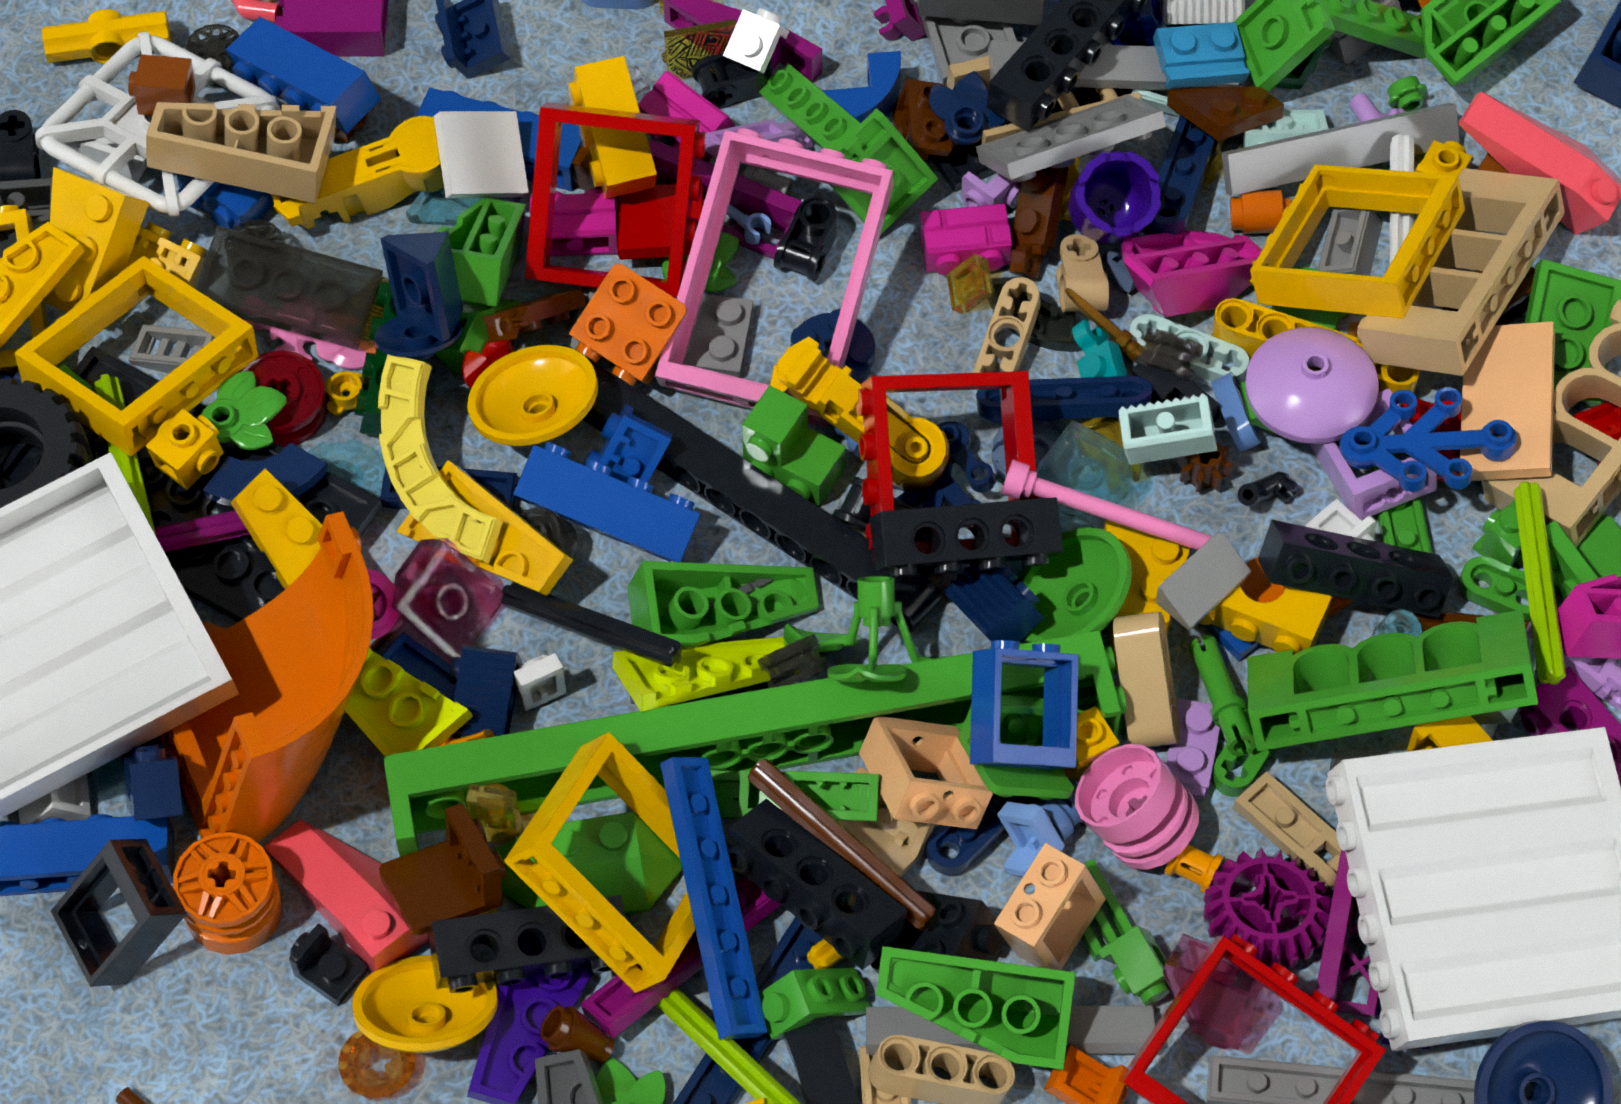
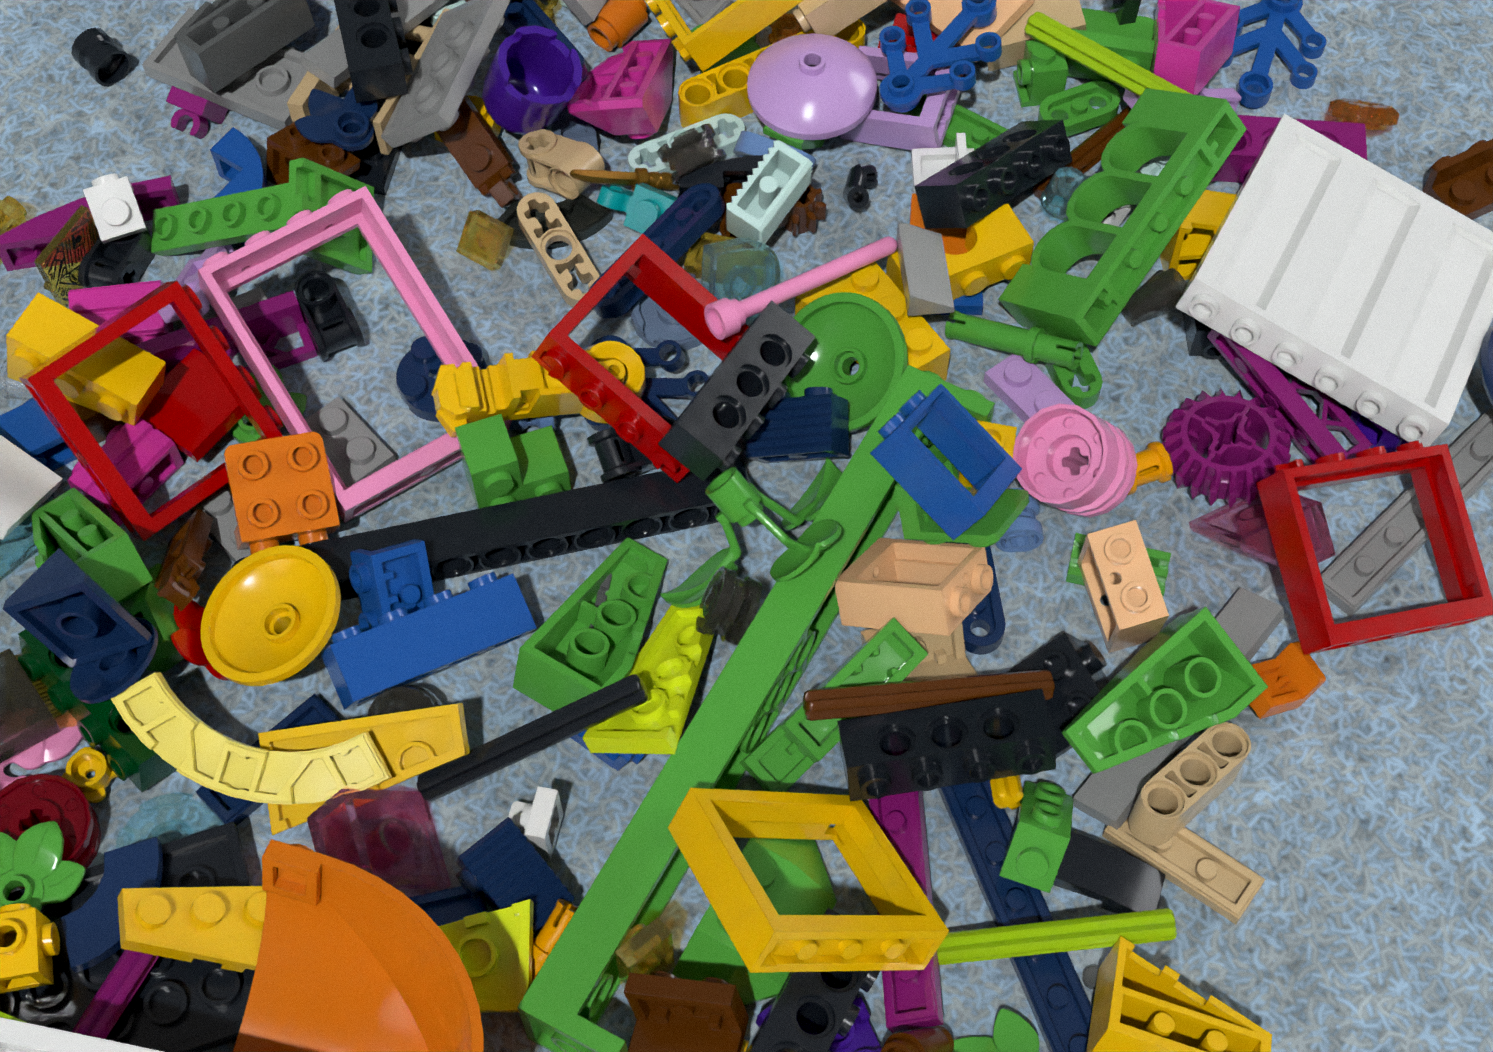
camera: 50 degrees left, 0 degrees up
(713, 898) = (898, 833): blue plate -> none
(748, 222) = (271, 346): light blue hand -> none
(958, 233) = (438, 211): dark pink brick -> none
(998, 191) = (420, 174): lavender bracket -> none
(1029, 830) = (1029, 562): light blue bracket -> none
(1138, 964) = (1204, 568): bright green brick -> none
(1146, 679) = (958, 359): tan beam -> none
(1290, 826) = (1164, 379): tan plate -> none

